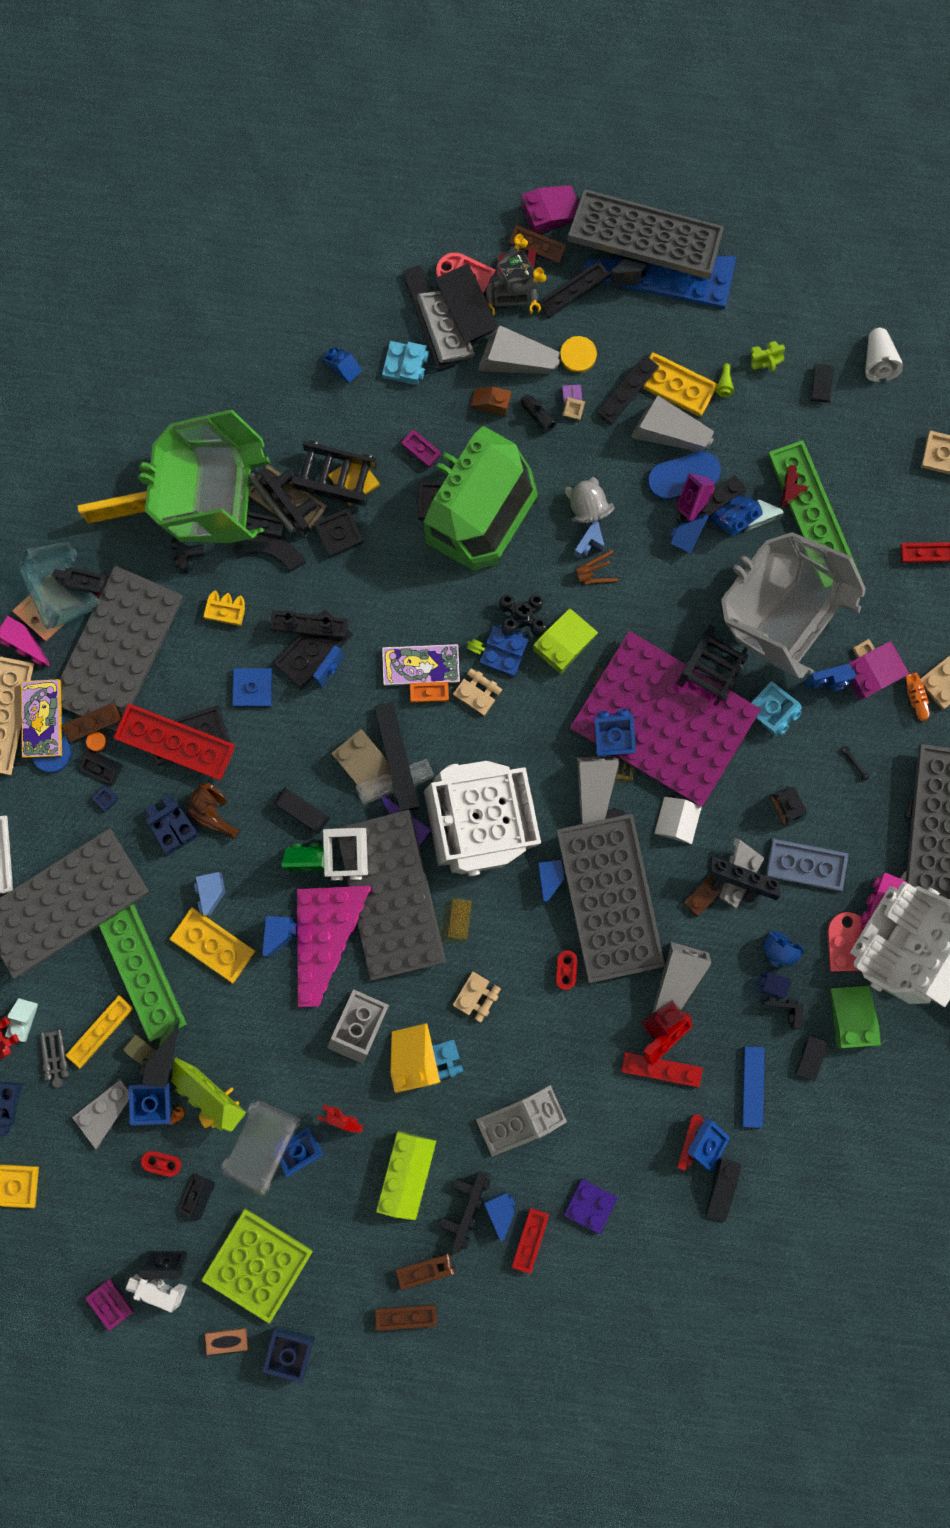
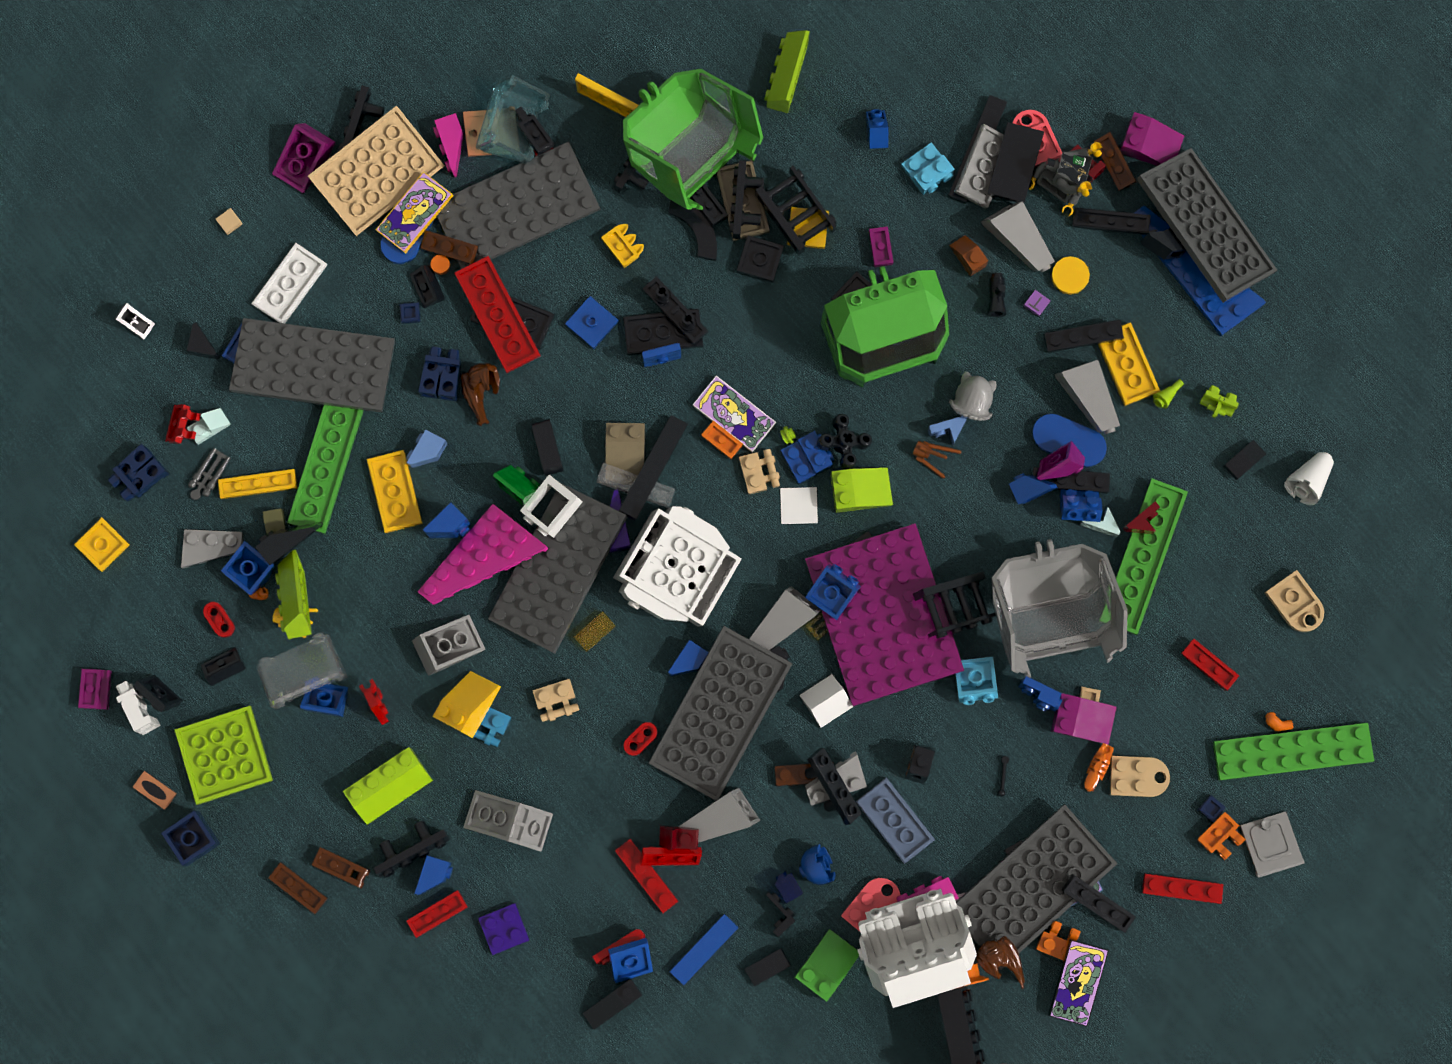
camera: 40 degrees right, 0 degrees up
(236, 374) = (787, 71): none -> lime slope
(272, 503) = (728, 193): dark grey bar -> none
(529, 692) = (798, 505): none -> white sticker
(573, 408) = (1028, 314): tan tile -> none

